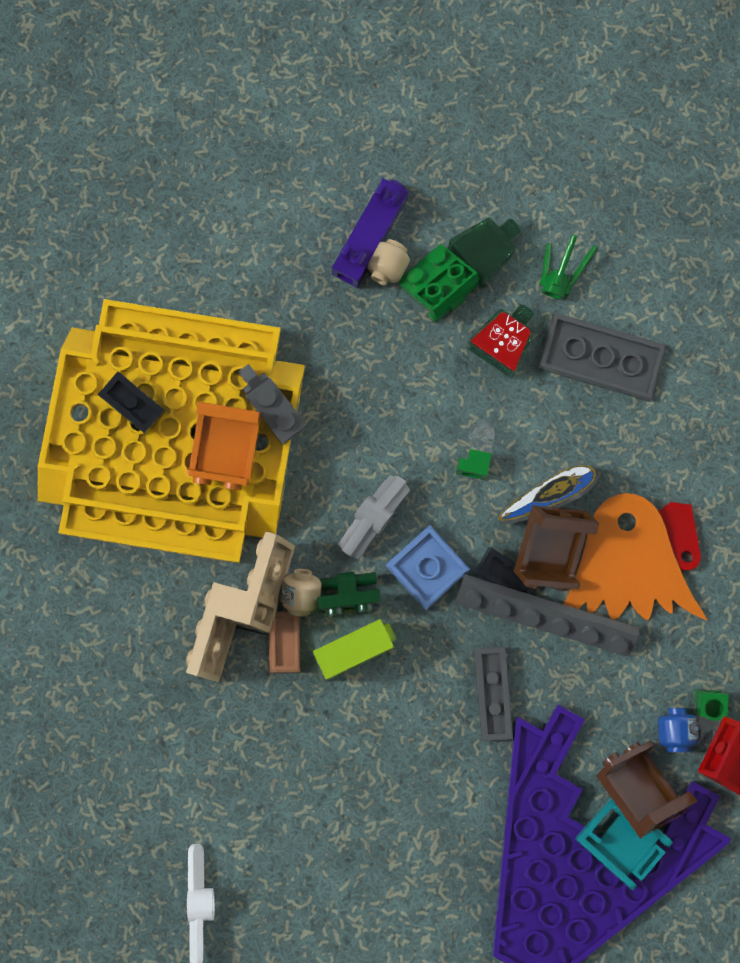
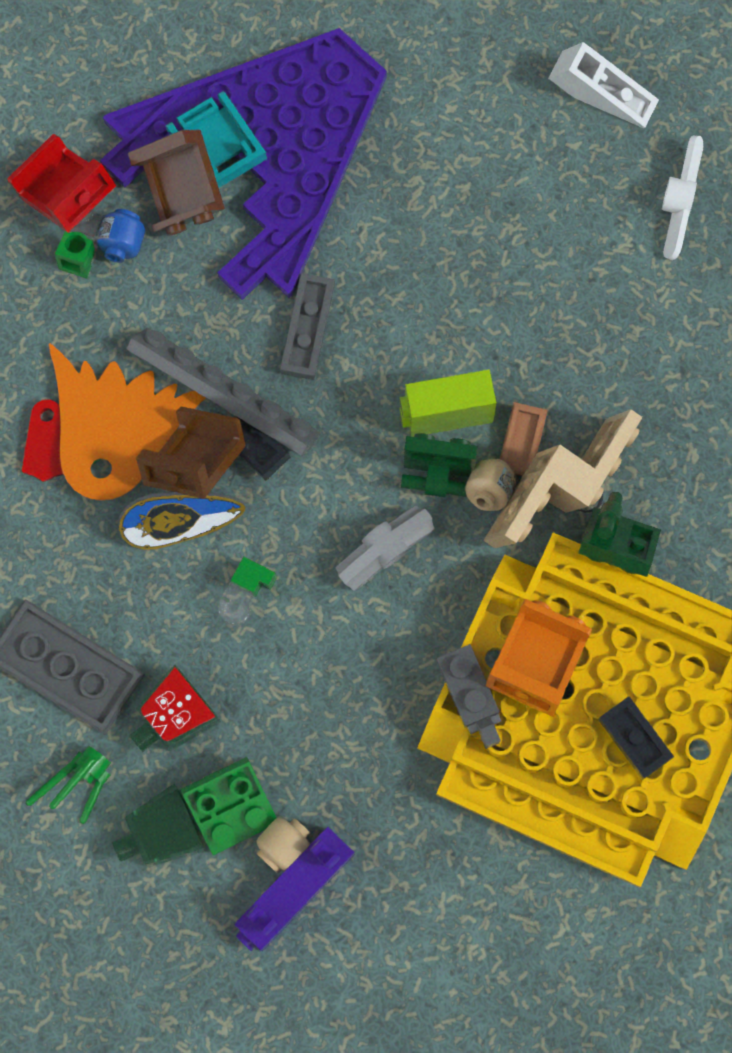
camera: 155 degrees left, 5 degrees down
(181, 571) = (619, 539): none -> dark green plate
(427, 567) = (340, 478): medium blue plate -> none

